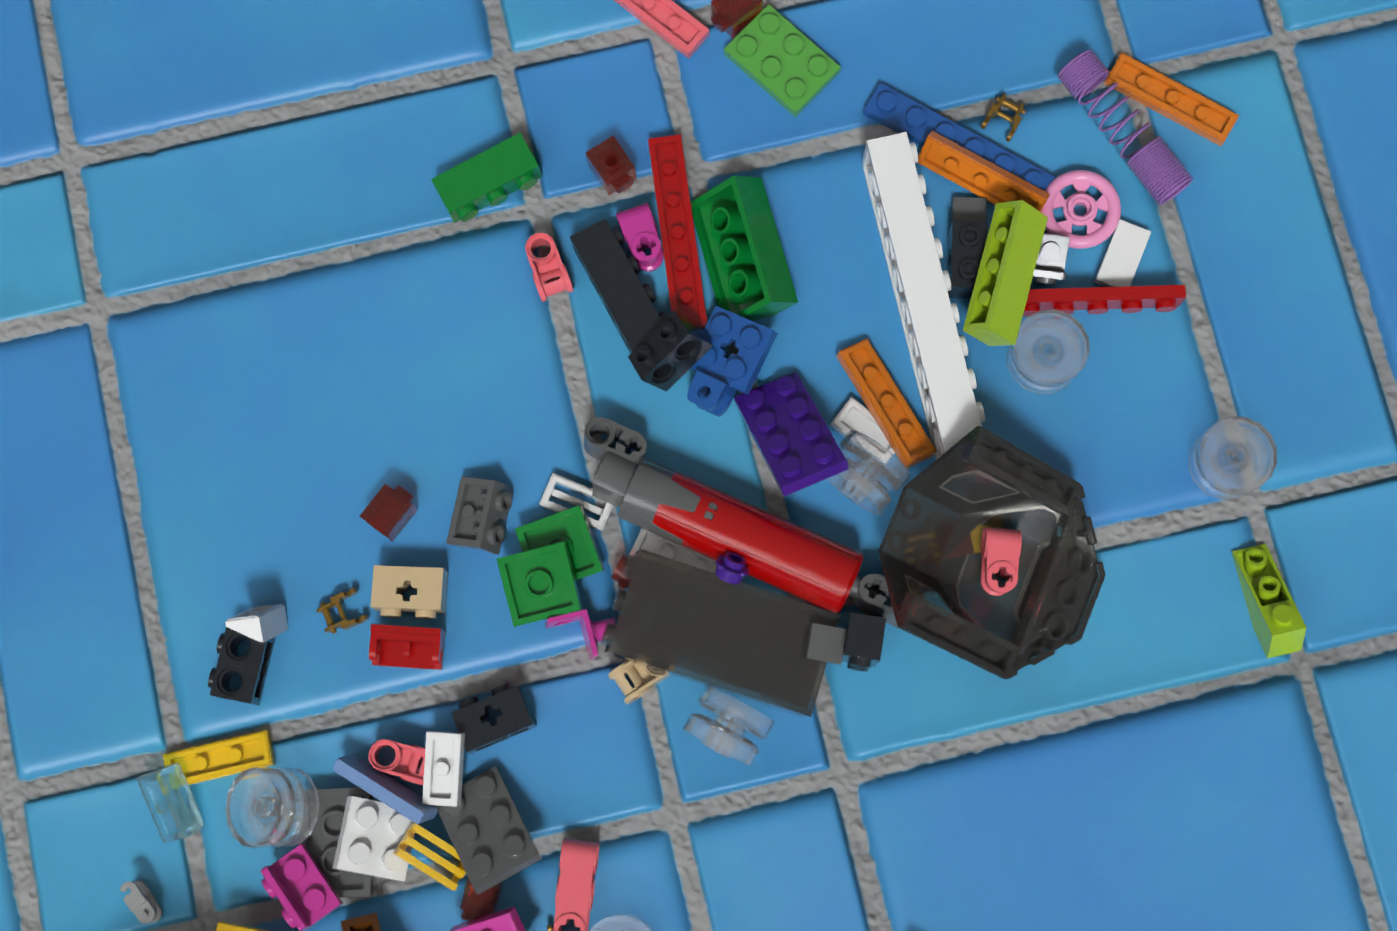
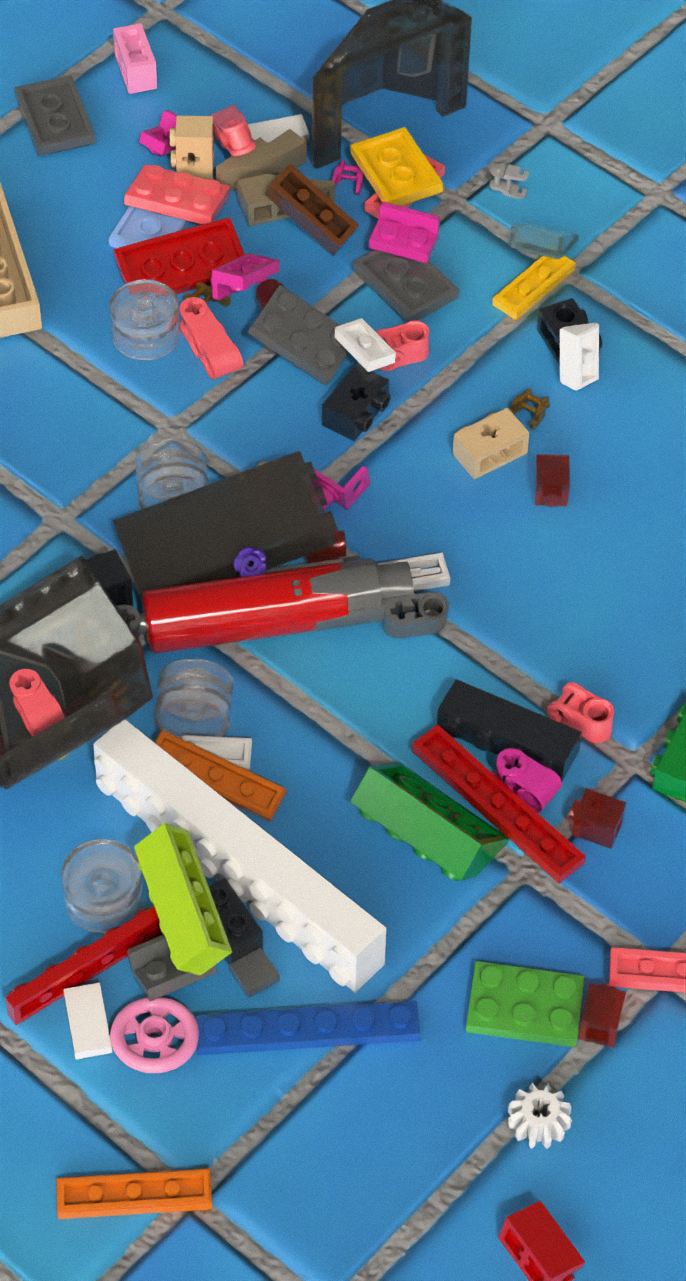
camera: 140 degrees right, 25 degrees down
(272, 807) = (466, 260): clear wheel -> none
(369, 839) = (378, 289): white plate -> none
(384, 788) = (391, 314): medium blue tile -> none
(407, 646) = (460, 414): red hinge -> none
(458, 871) = (333, 294): yellow tile -> none
(480, 515) = (480, 518): dark grey bracket -> none
(539, 584) = (393, 489): green plate -> none
(569, 527) = (399, 527): green plate -> none
(670, 351) = (425, 694): black brick -> none
(719, 376) = (369, 710): blue plate -> none
(791, 434) = (278, 689): dark purple plate -> none
(825, 643) = (139, 564): dark grey tile -> none
(977, 173) = (264, 1003): orange tile -> none
(994, 110) = (296, 1078): pearl gold piece -> none
(1153, 163) = (113, 1108): medium lavender piece -> none

